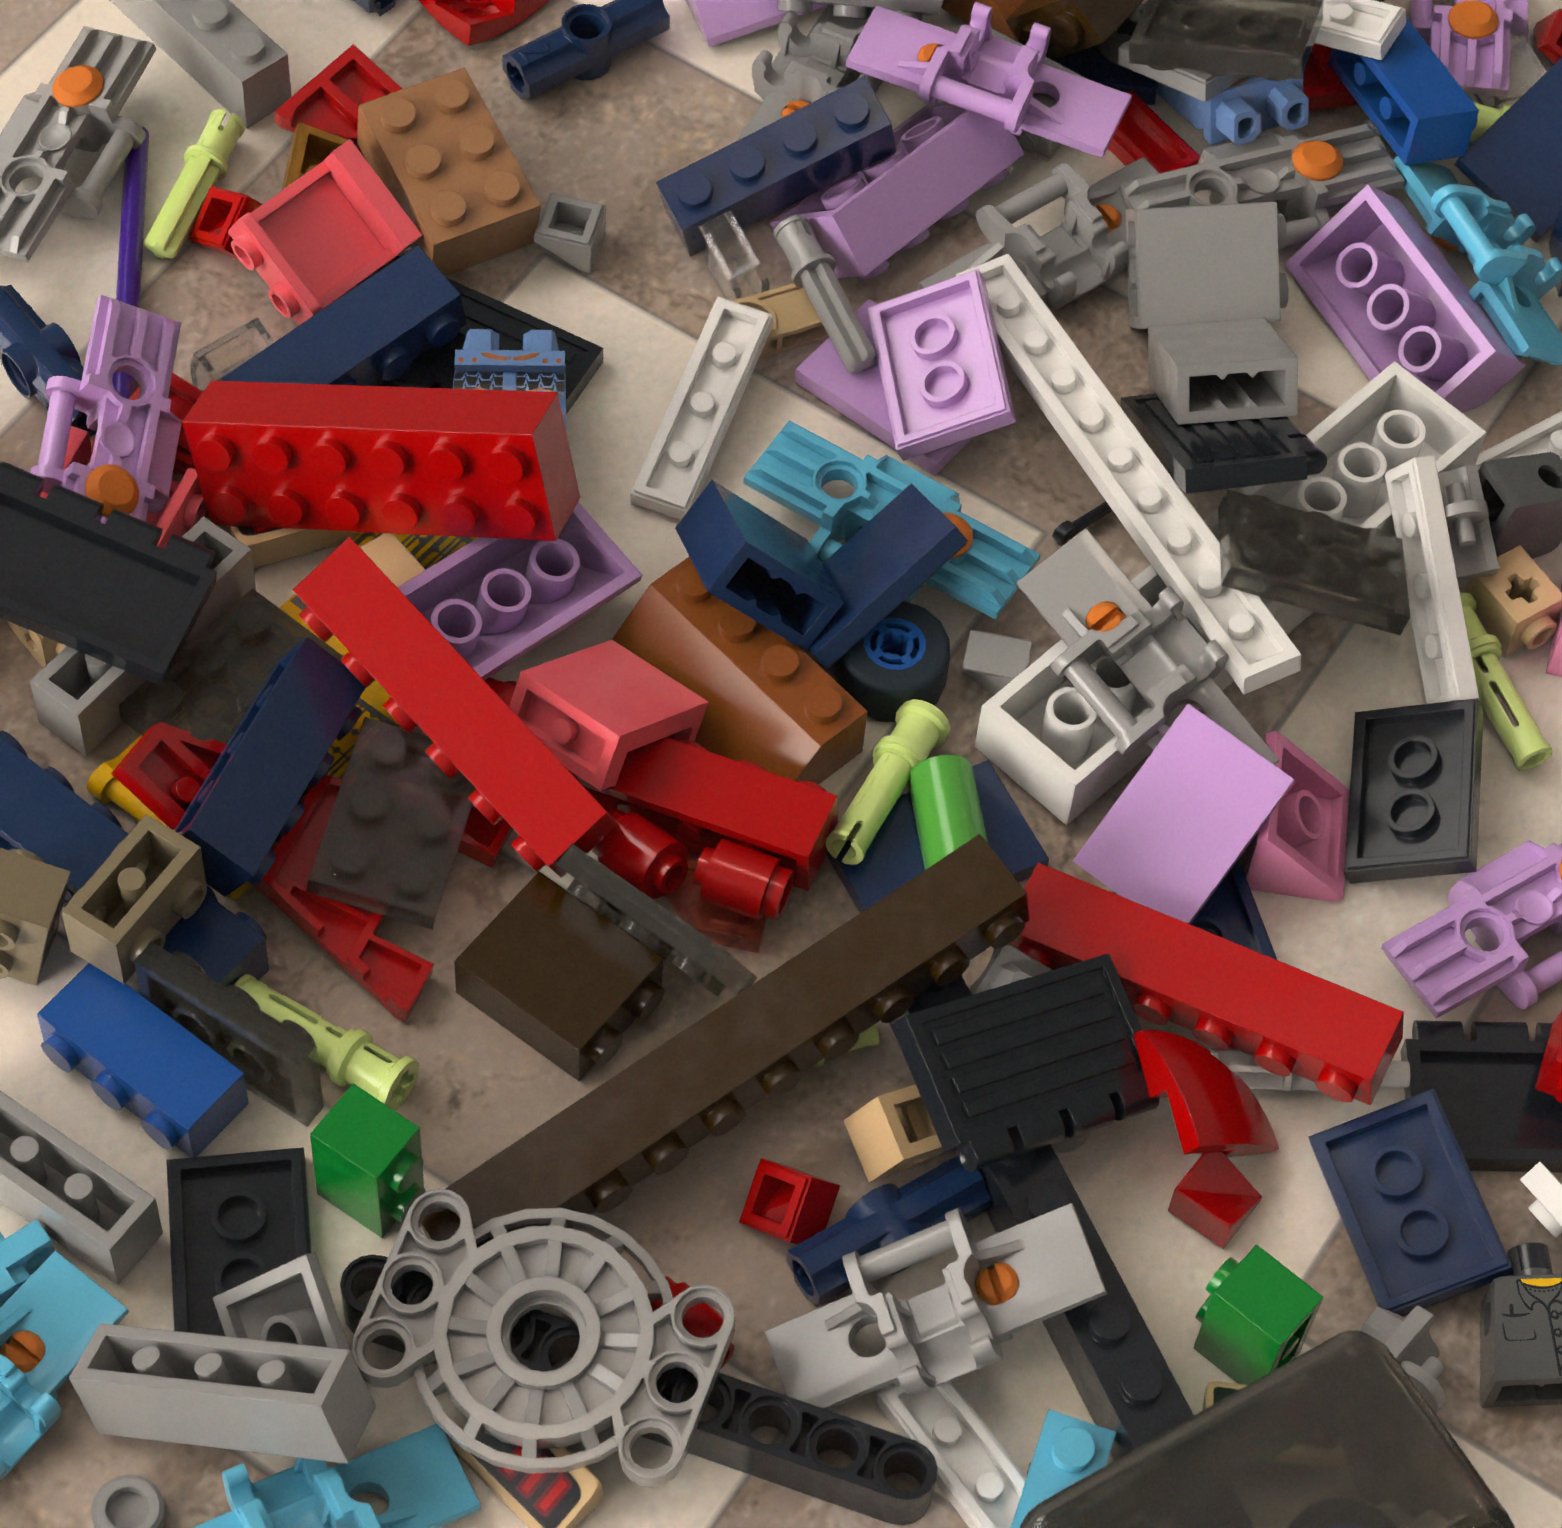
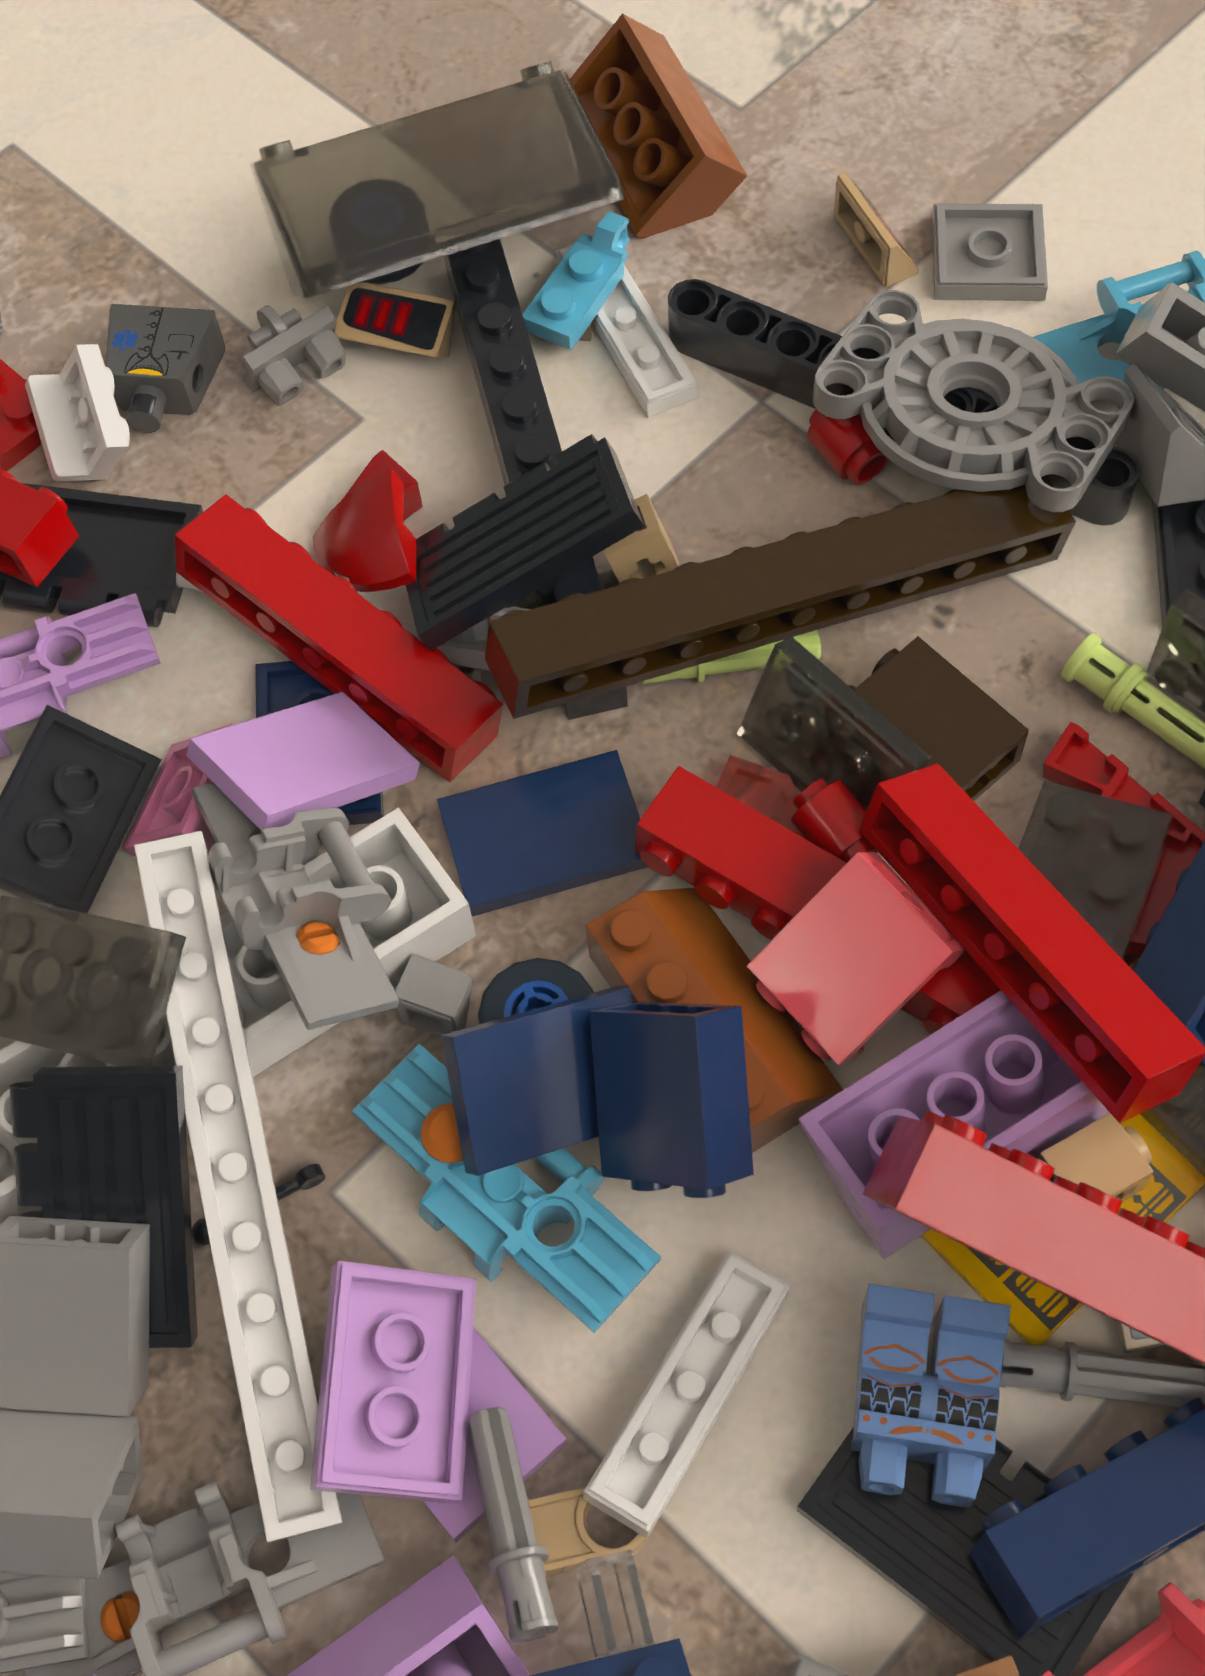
camera: 160 degrees left, 5 degrees up
(368, 1160) = (1114, 560): green brick -> none
(743, 880) = (743, 776): red brick -> none
(788, 1202) = (743, 524): red slope -> none
(881, 1219) = (691, 484): dark blue piece -> none
(917, 732) = (560, 905): yellowish green pin -> none
(945, 805) = (525, 822): bright green brick -> none
(946, 1331) = (642, 393): light grey piece -> none
(1255, 1316) = (385, 365): green brick -> none
(1410, 1205) = (221, 448): dark blue tile -> none

